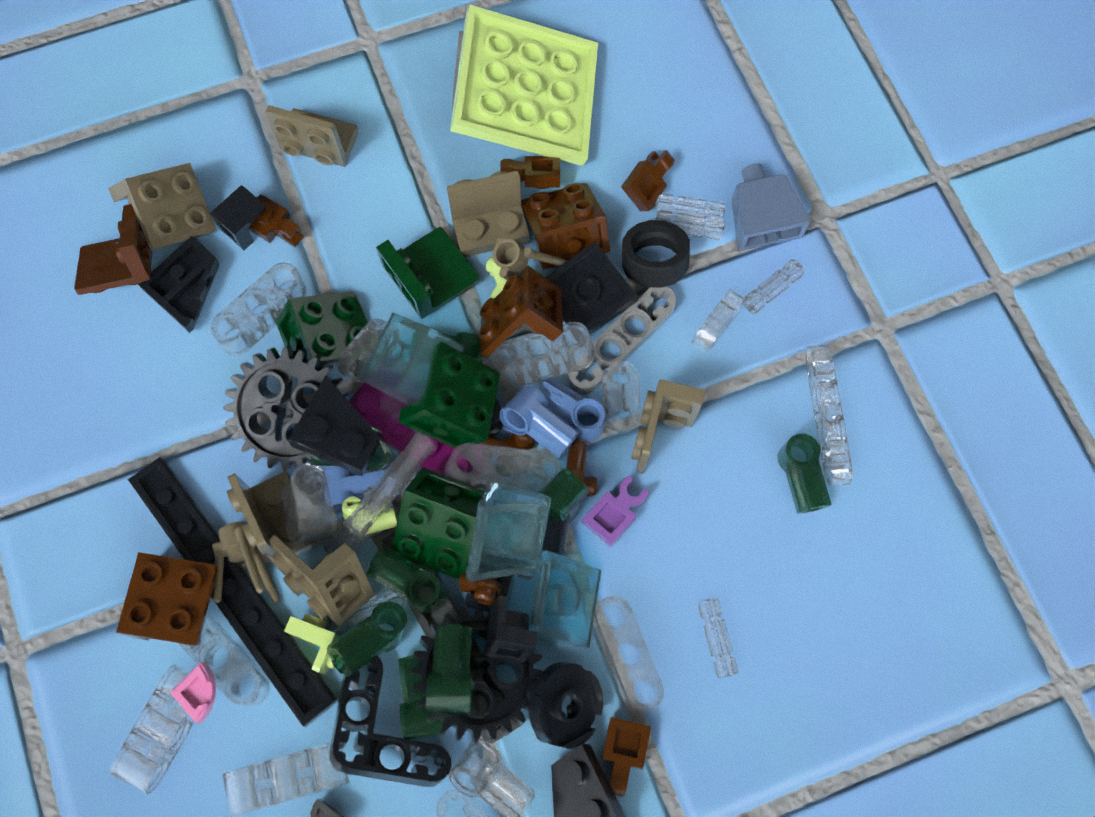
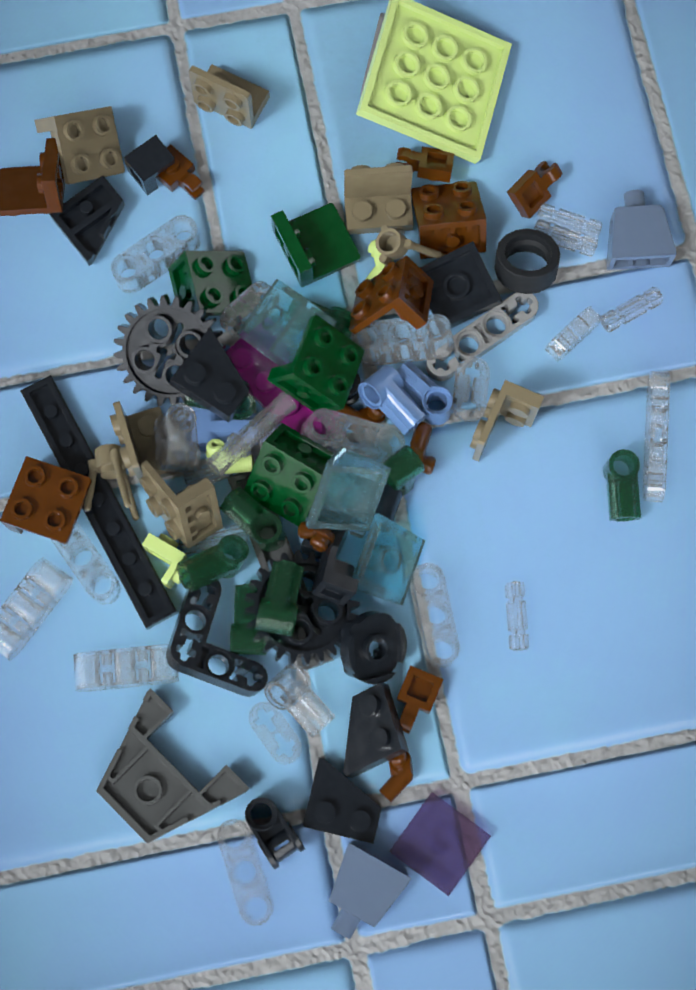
camera: 10 degrees right, 5 degrees up
(197, 692) = (62, 582): bright pink tile -> none
(612, 515) = (444, 494): medium lavender plate -> none

